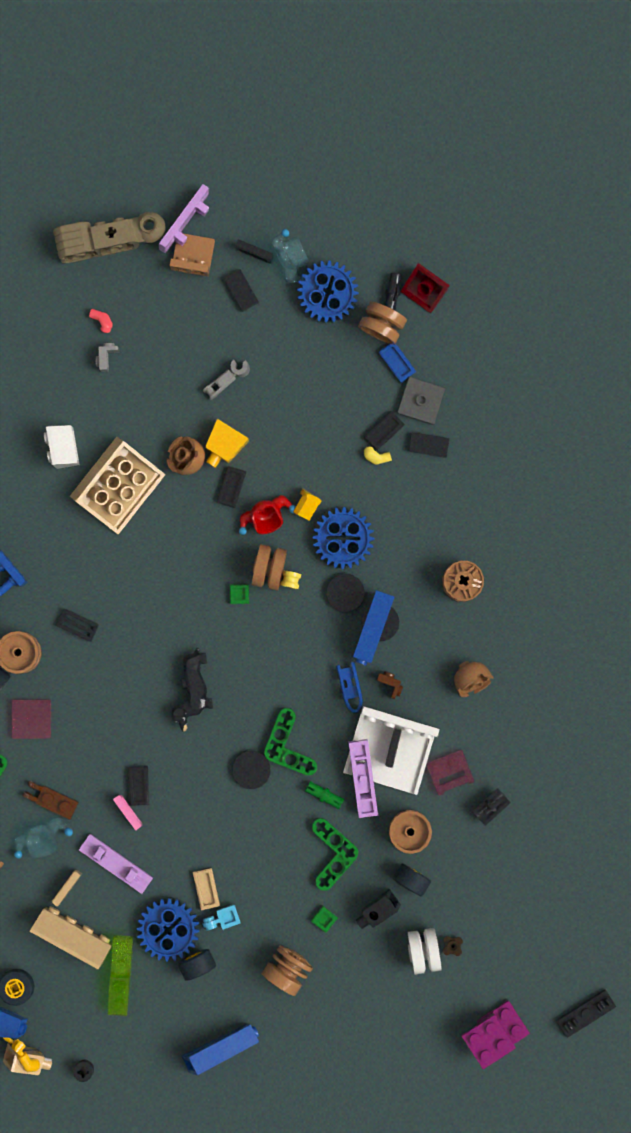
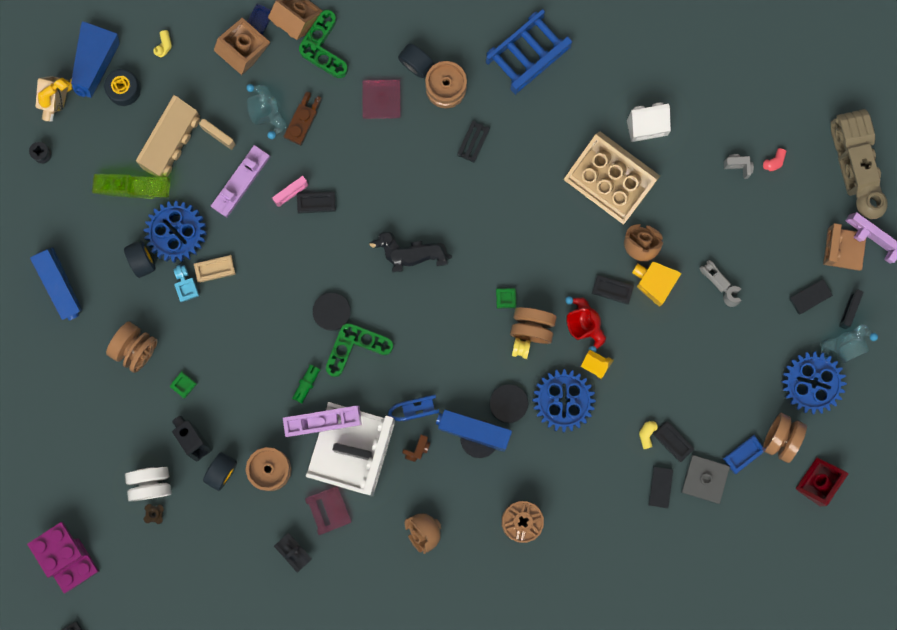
camera: 85 degrees right, 5 degrees down
(339, 857) = (244, 400): green beam -> none
(393, 290) = (817, 449): black pin -> none

